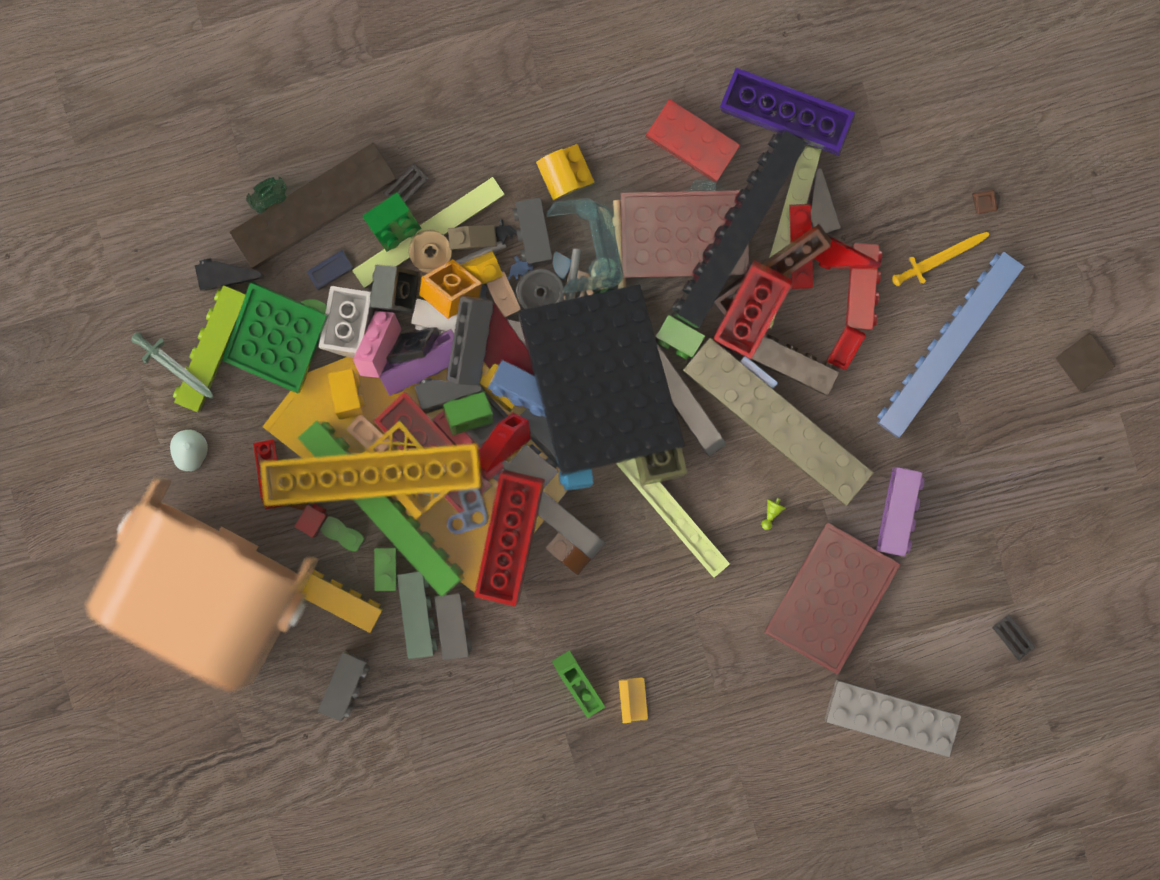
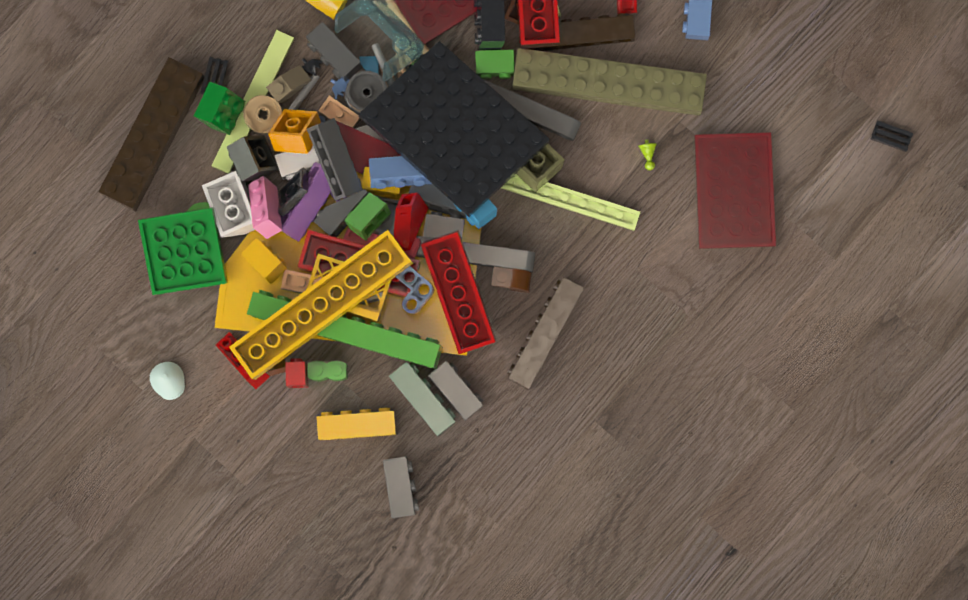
camera: 25 degrees left, 5 degrees down
(155, 352) = (99, 320): sand green sword -> none
(196, 593) = (239, 475): light nougat container -> none
(211, 348) = (138, 292): lime brick -> none
(216, 274) = (111, 230): black slope -> none
(266, 194) = (110, 146): clear green plate -> none
(330, 270) = (194, 176): dark blue tile -> none
(385, 569) = (377, 377): bright green brick -> none
(484, 267) = (313, 100): yellow slope -> none
(569, 624) = (547, 331): none -> brick
(578, 684) = (581, 375): bright green slope -> none
(633, 699) = (630, 362): yellow panel -> none
(758, 372) = (574, 52): light blue tile -> none
(892, 718) = (839, 253): light grey brick -> none
(899, 511) = (744, 91): medium lavender brick -> none

